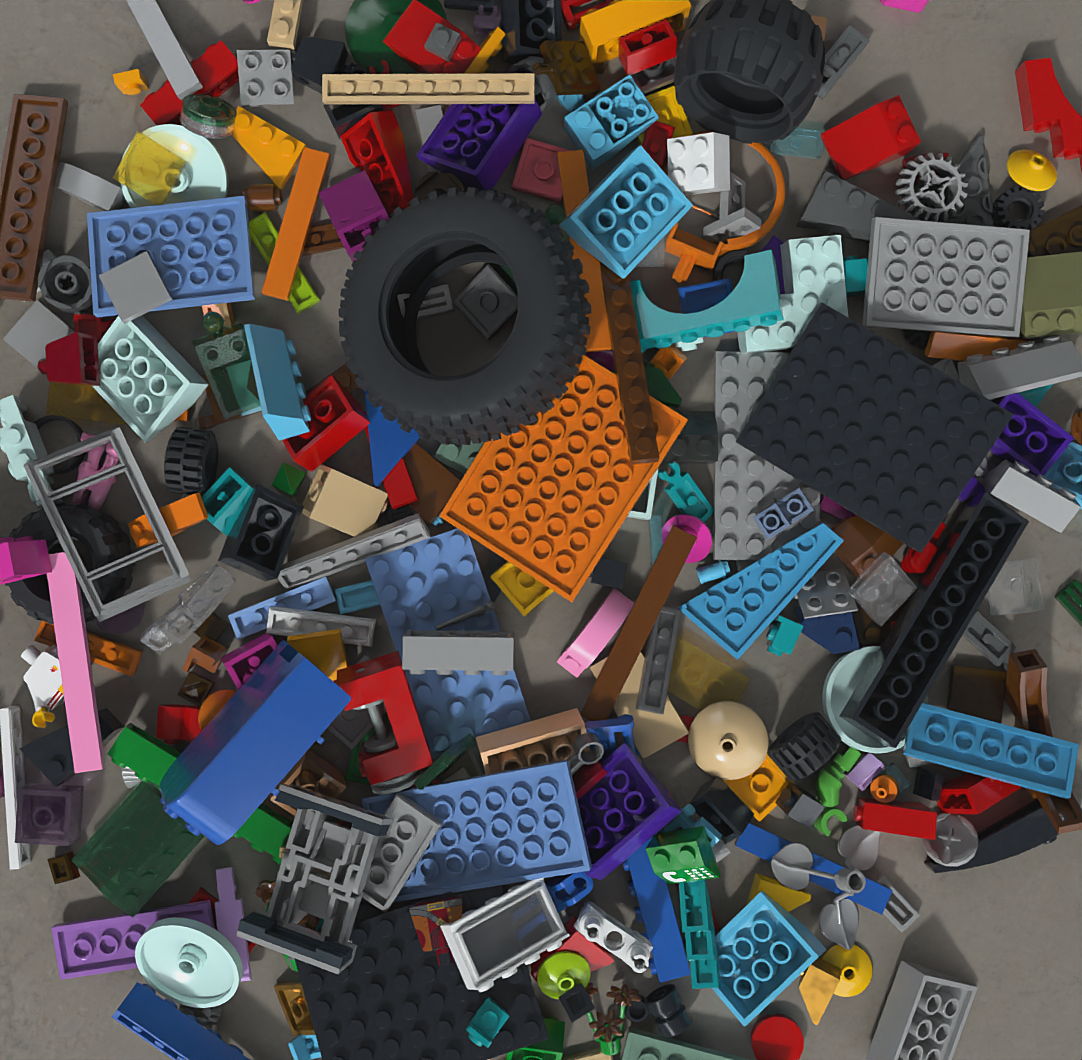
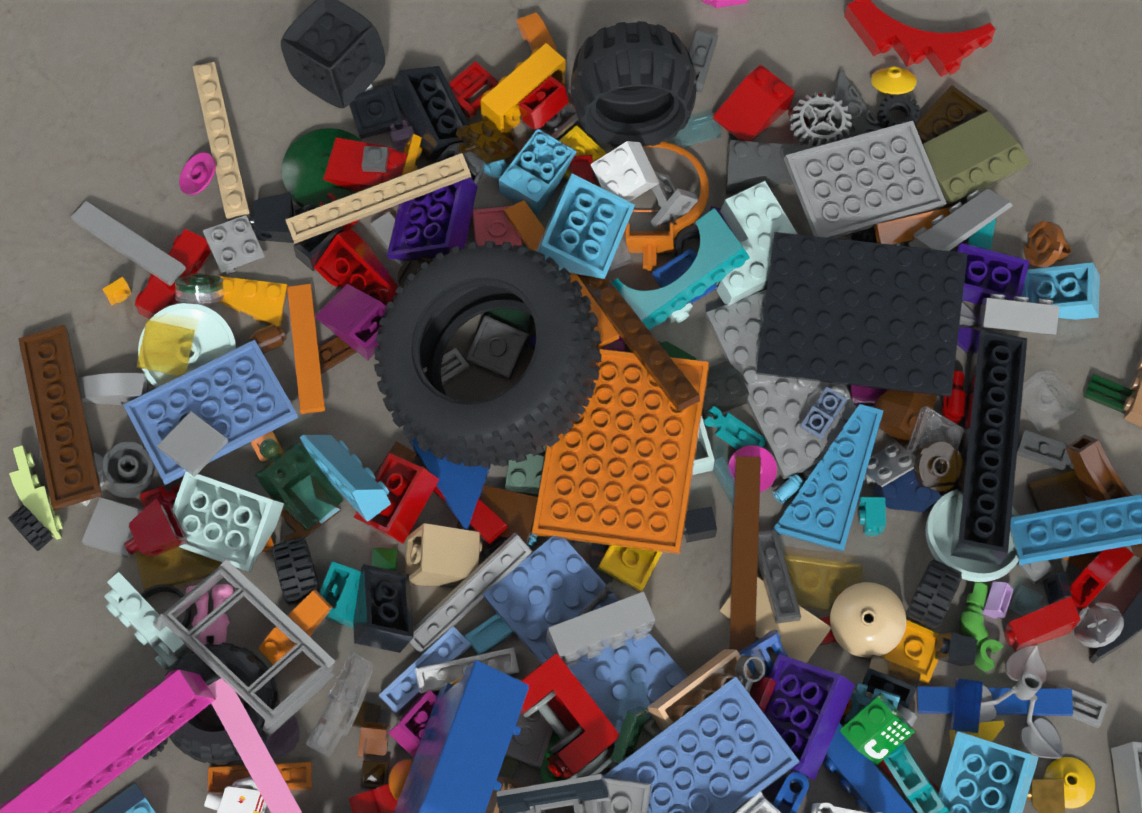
camera: 20 degrees left, 20 degrees down
(265, 237) = (286, 375): lime tile -> none
(596, 633) = (710, 579): bright pink arch -> none
(669, 360) = (670, 332): orange plate -> none
(781, 871) = (967, 705): none -> clear blue tile
(855, 275) = (793, 209): teal brick -> none
(864, 610) = (925, 462): none -> dark brown plate
(884, 788) = (1027, 605): orange tile -> none

